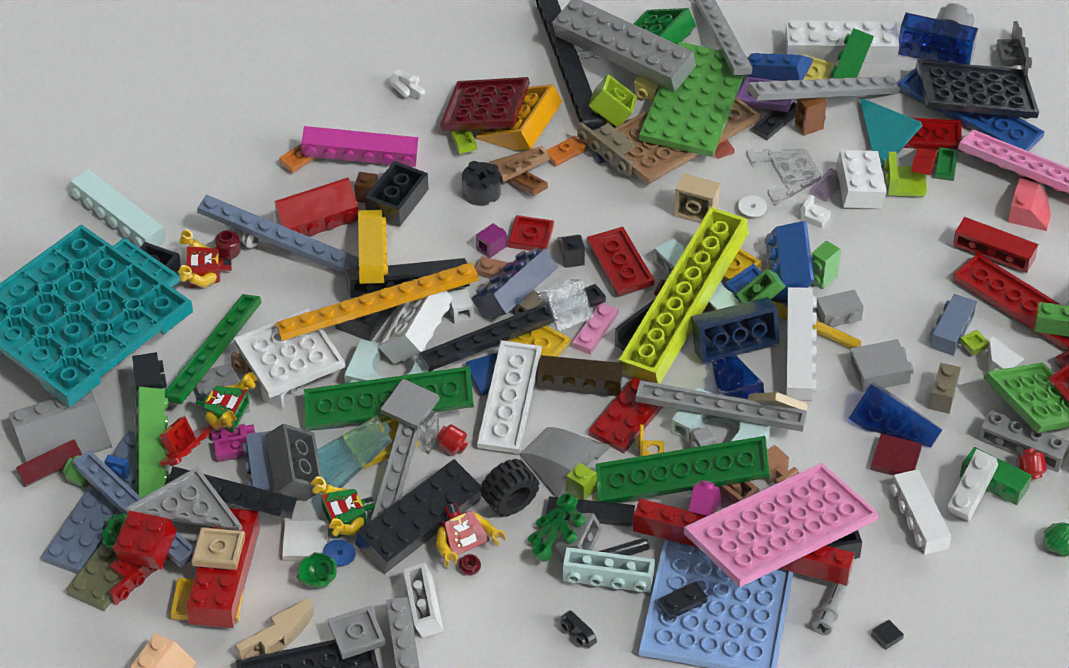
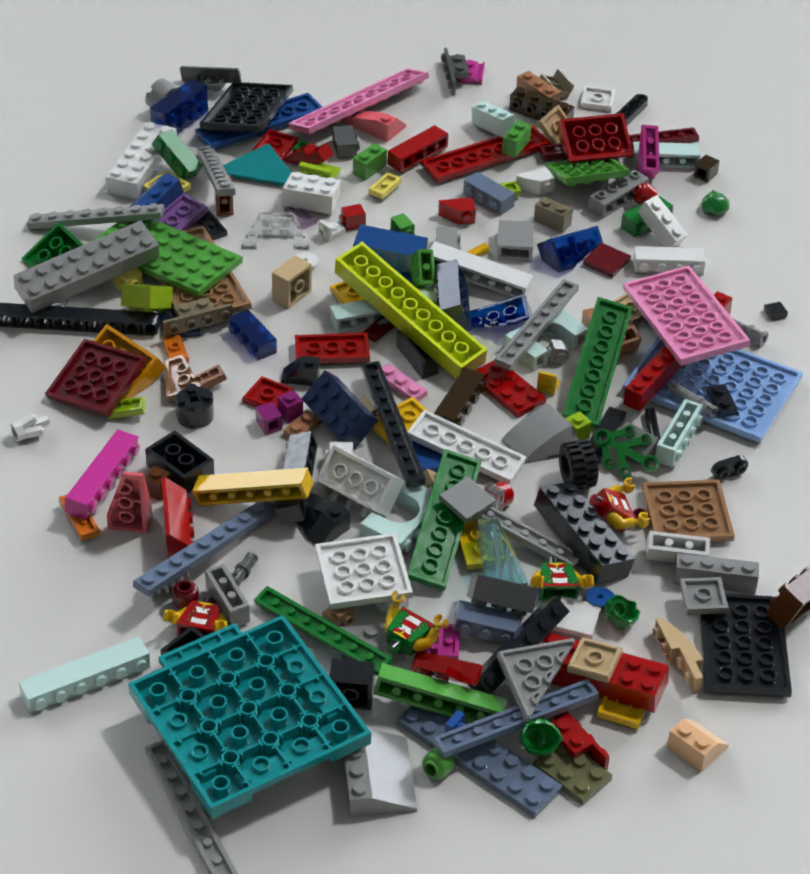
camera: 75 degrees left, 5 degrees down
(47, 463) = (417, 786): dark red tile -> none
(145, 540) = (573, 707): red brick -> none
(235, 272) = (227, 595): none -> light grey brick
(281, 278) = (243, 568): none -> dark grey pin
(315, 169) = (130, 505): none -> coral wedge
(376, 301) = (340, 492): light orange plate -> none
(494, 604) = (689, 509): none -> medium nougat plate
(510, 247) = (290, 406): none -> magenta brick
(567, 303) = (374, 377): clear bracket -> none
(609, 196) = (252, 334): none -> clear blue brick
(663, 577) = (684, 394): none -> light grey pin
(705, 498) = (638, 353): dark pink slope -> none
(778, 399) = (544, 294): tan tile -> none
(843, 223) = (352, 217): none -> red brick
(907, 307) = (458, 210): none -> red slope
(916, 236) = (384, 185): none -> light yellow plate
(947, 210) = (369, 161): none -> bright green brick
(973, 183) = (345, 141): none -> dark grey brick

